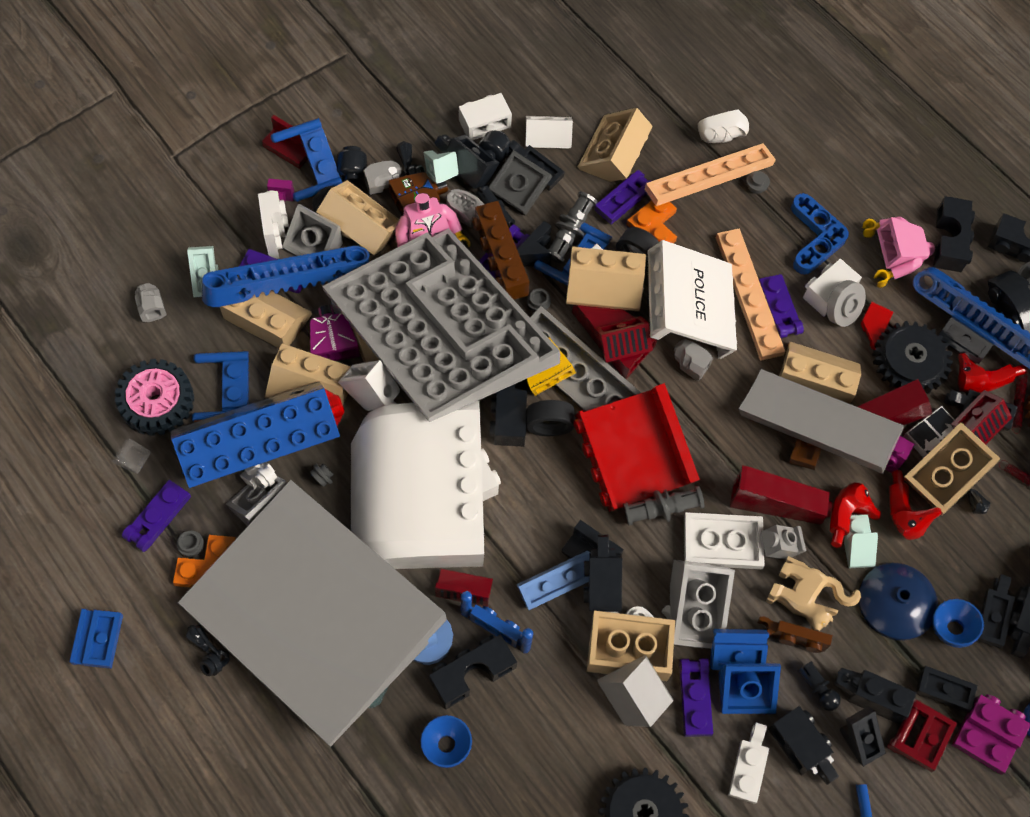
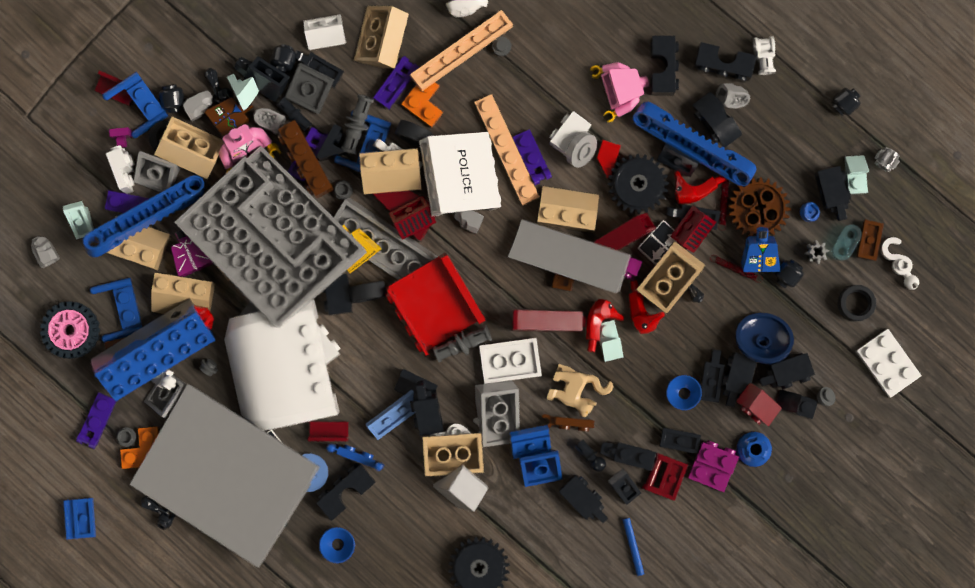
camera: 10 degrees left, 20 degrees up
(131, 456) = (65, 378): clear slope -> none
(370, 385) = (233, 300): white torso -> none
(485, 115) = (269, 30): white brick -> none
(696, 698) = (505, 480): dark purple plate -> none
(749, 766) = (548, 520): white plate -> none
(783, 541) = (552, 355): light grey brick -> none
(823, 231) = (559, 81): blue beam -> none
(890, 613) = (628, 383): dark blue dish -> none

